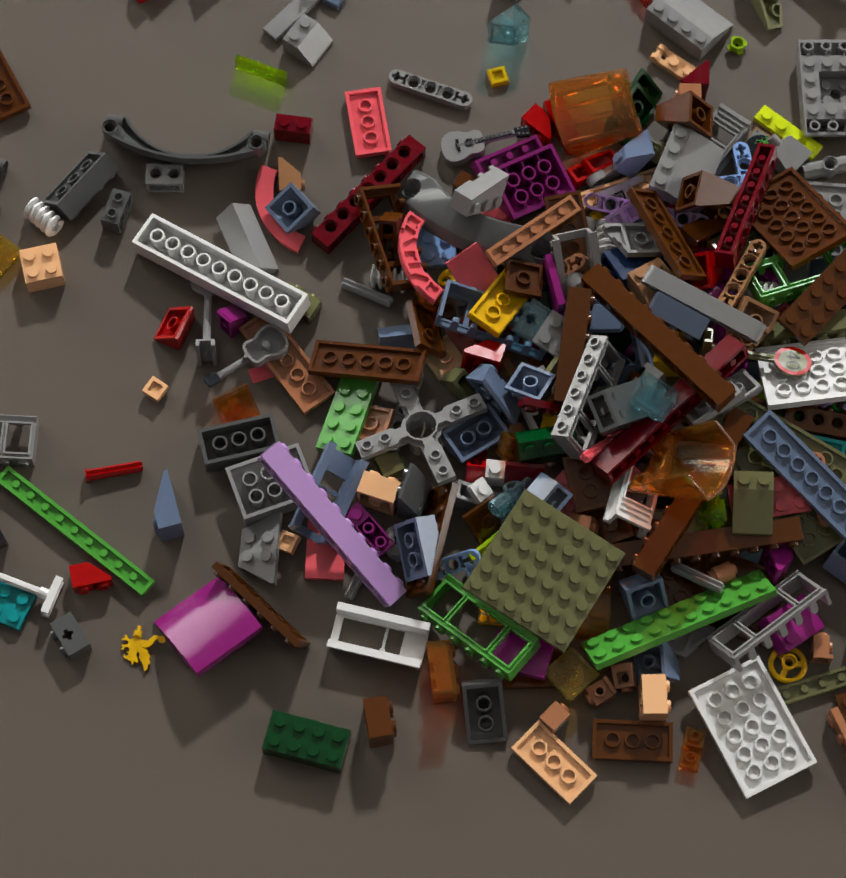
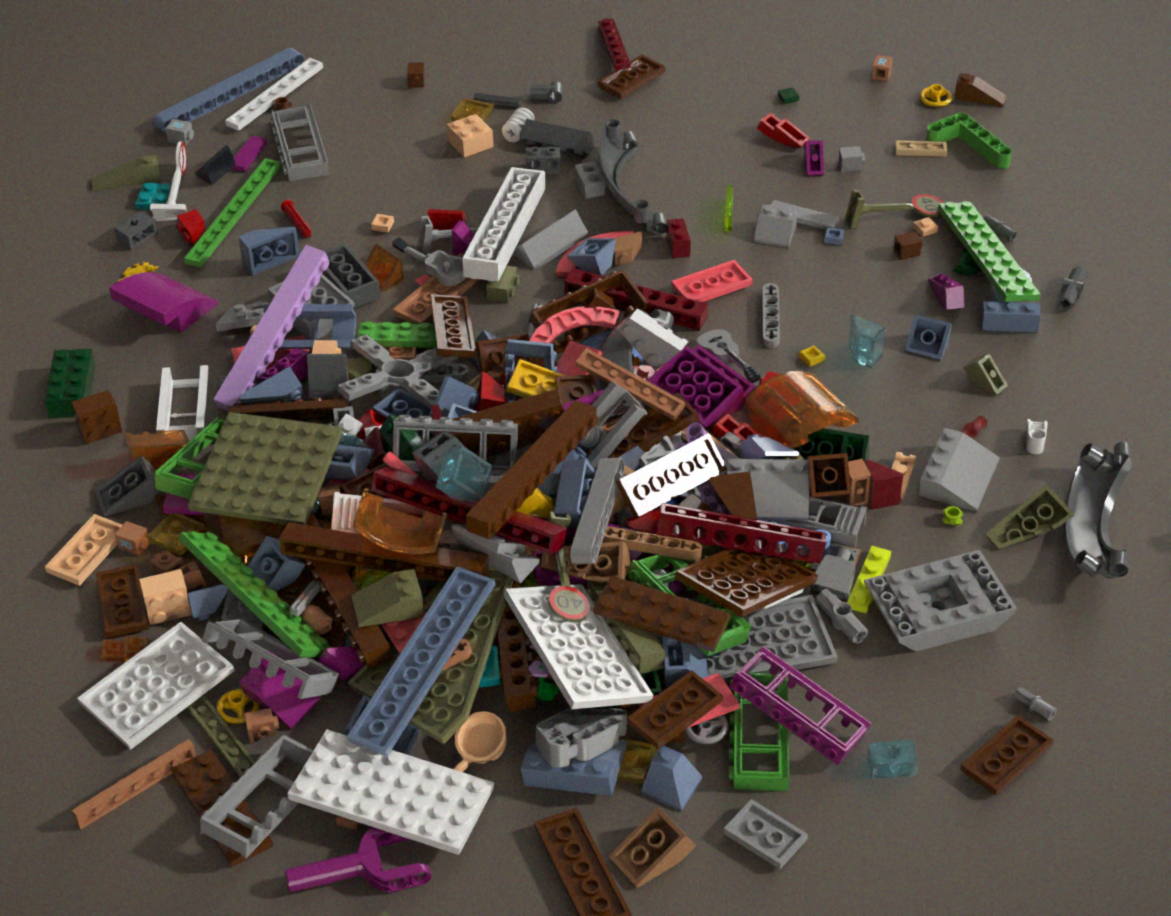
camera: 75 degrees right, 25 degrees down
(264, 609) = (190, 322): reddish brown plate -> none

